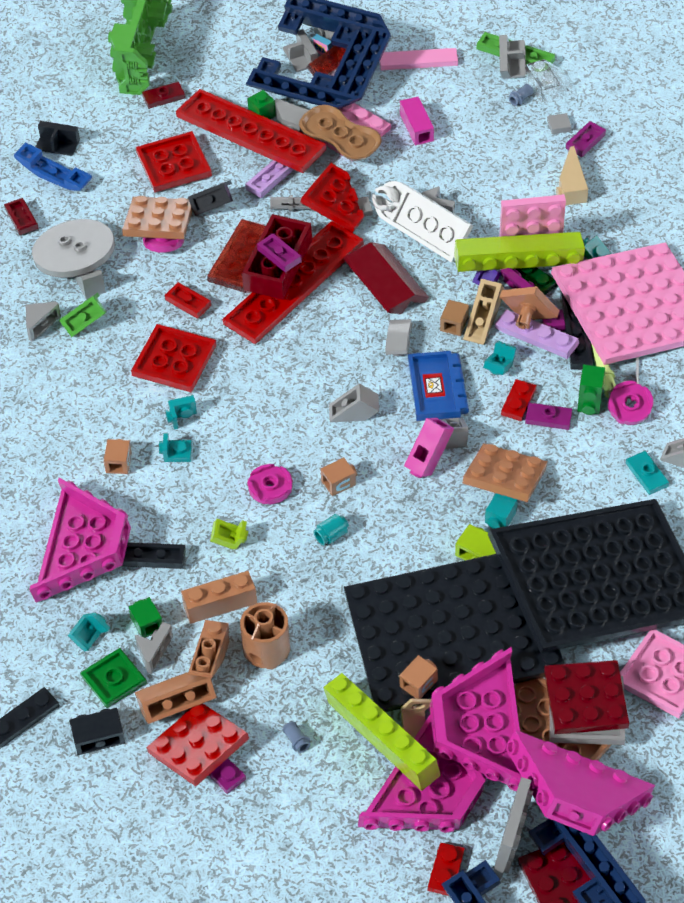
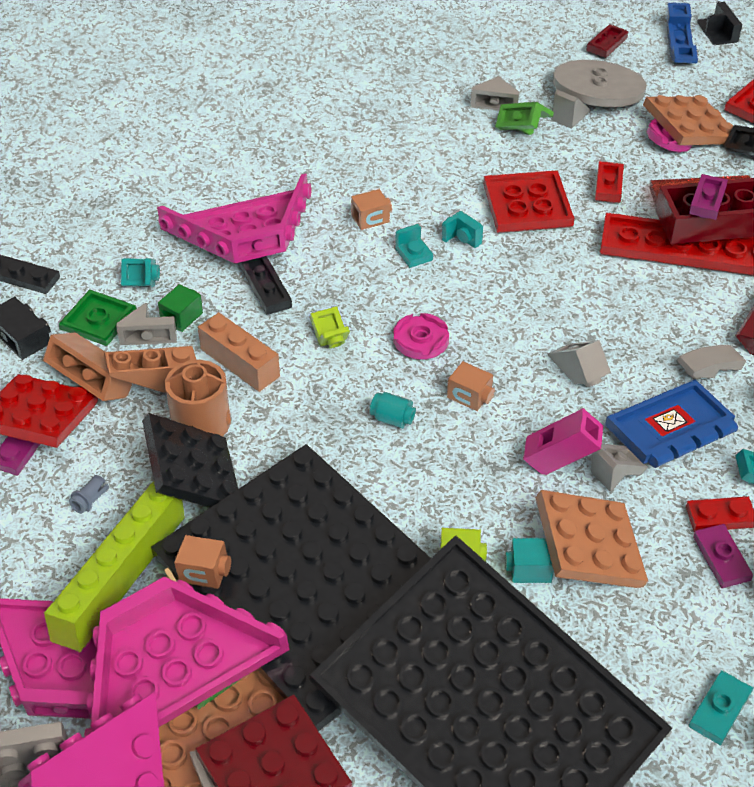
camera: 60 degrees right, 5 degrees down
(319, 659) = (188, 461): none -> black plate

